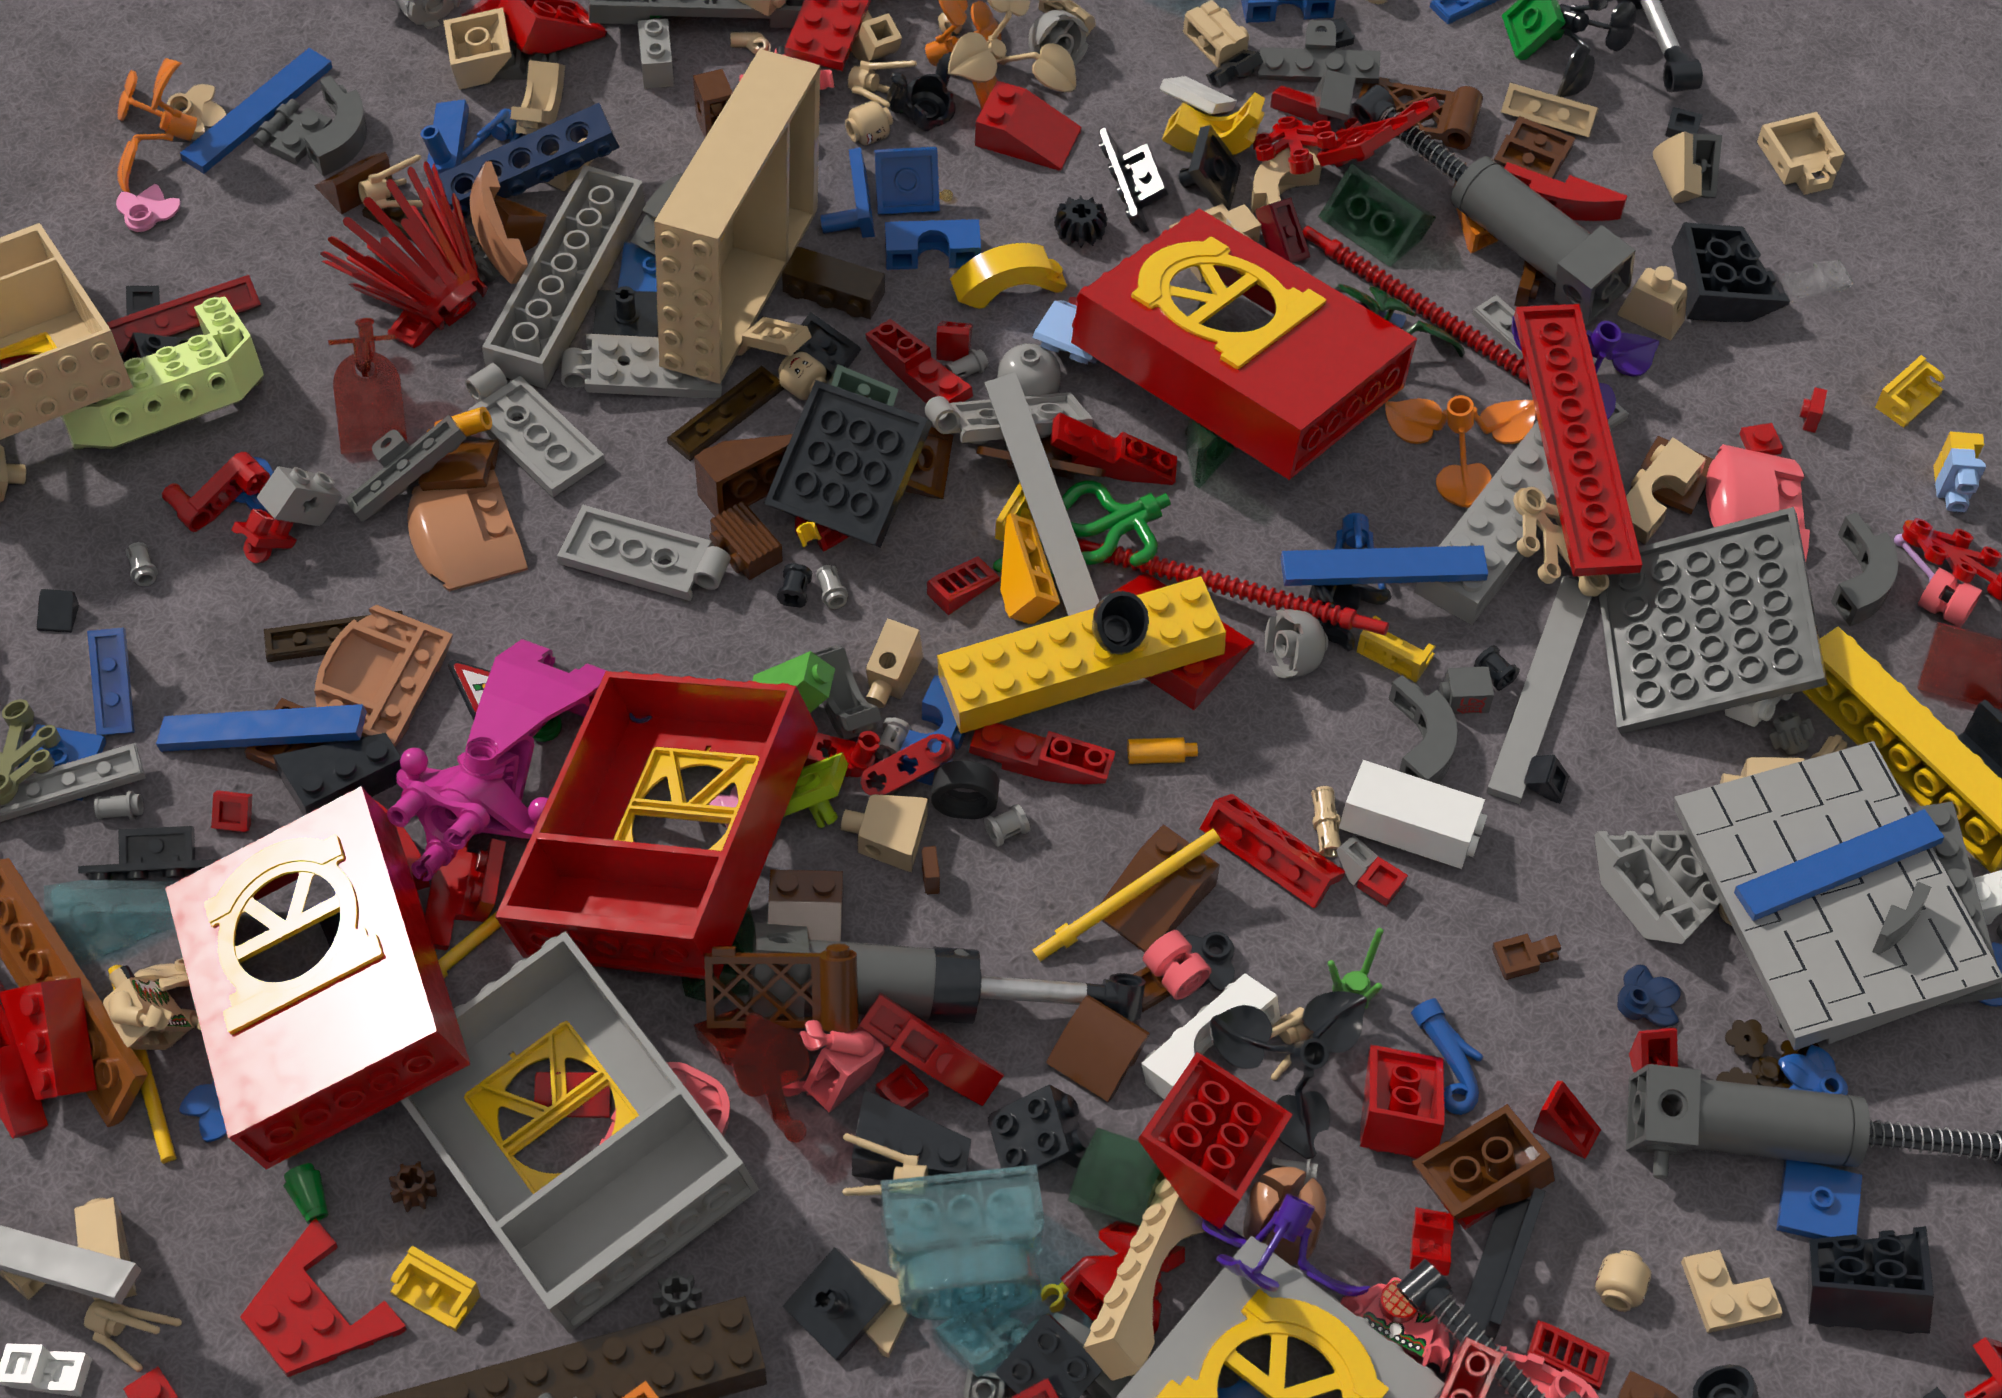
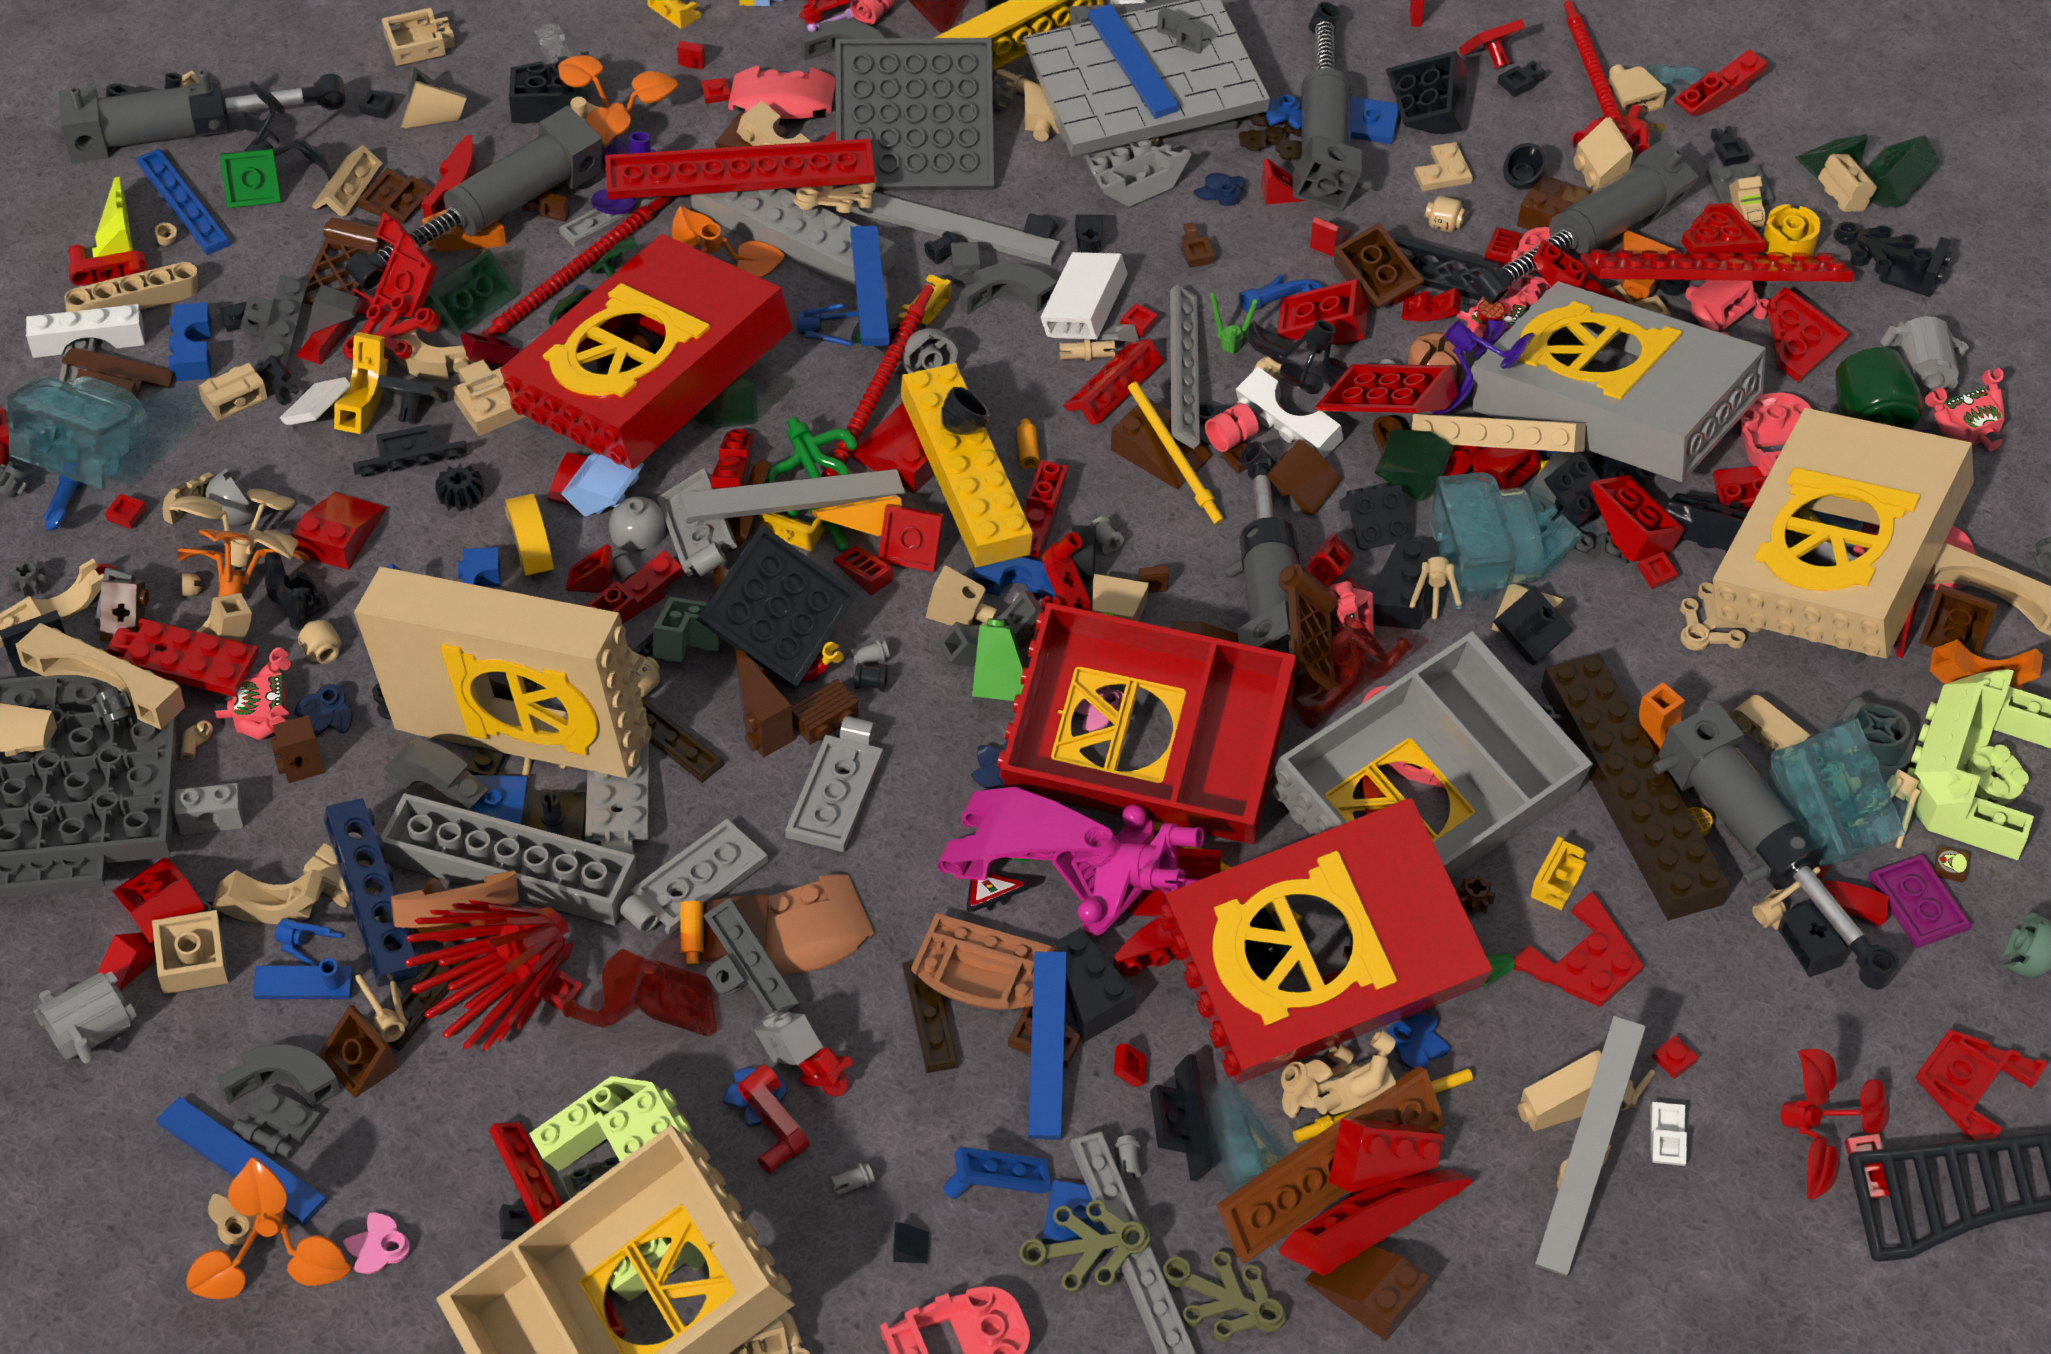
camera: 90 degrees left, 5 degrees down
(864, 79) = (267, 639): tan plant -> none
(993, 613) = (910, 537): none -> red tile
(1290, 920) = (1184, 367): none -> light grey tile
(1537, 830) = (1089, 232): none -> black piece
(1724, 354) = (613, 119): none -> orange plant

